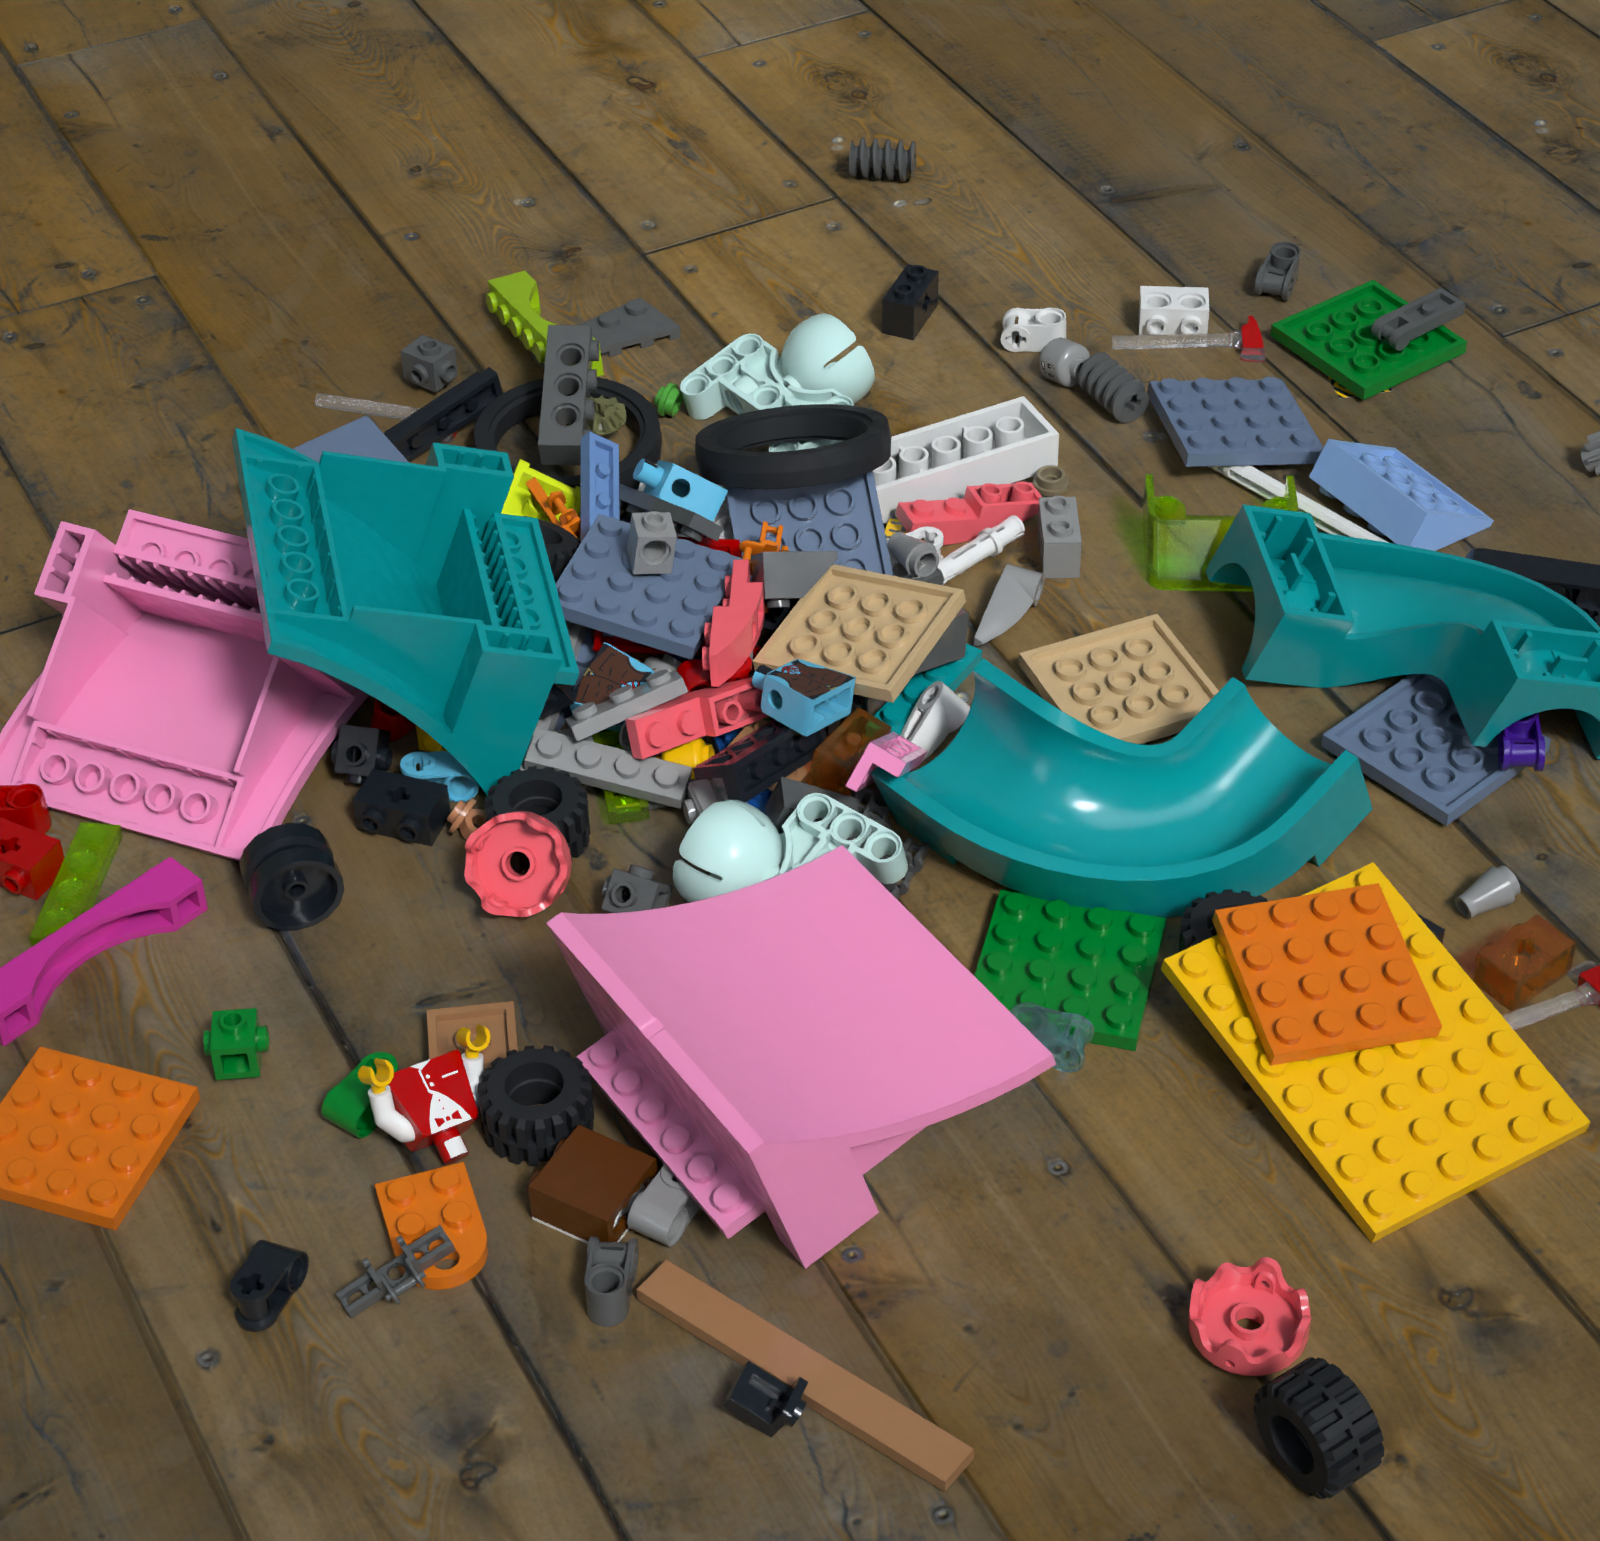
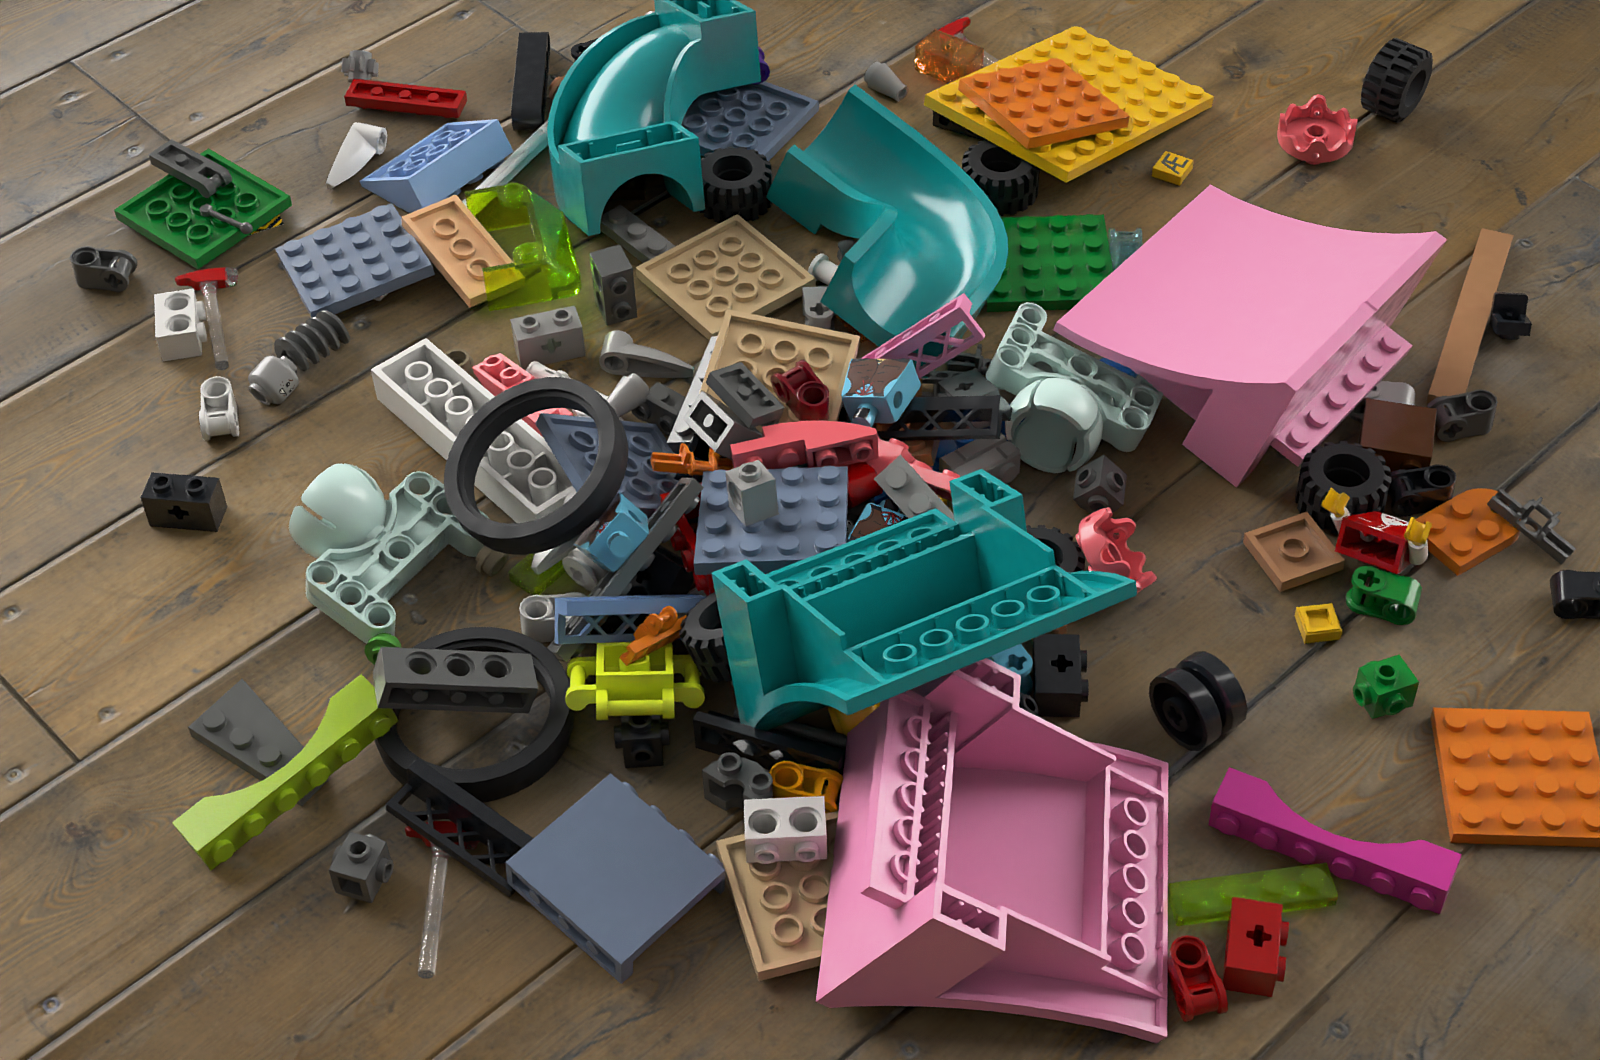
camera: 105 degrees left, 5 degrees up
(367, 1037) = (1318, 623): none -> yellow tile
(504, 1189) = (1421, 490): none -> black piece
(808, 629) = (802, 392): none -> dark red piece
(811, 578) = (745, 395): none -> dark grey bracket
(1113, 579) = (613, 284): none -> dark grey brick
(1219, 637) = (633, 234): none -> light grey plate
(1225, 1146) = (1172, 168): none -> yellow tile
(1233, 480) = (456, 246): none -> light nougat plate
(1293, 699) = (735, 184): none -> black tyre
(1348, 332) = (206, 211): none -> dark grey hinge
(1455, 445) = (356, 151): none -> white piece
(1540, 488) = (405, 98): none -> red plate

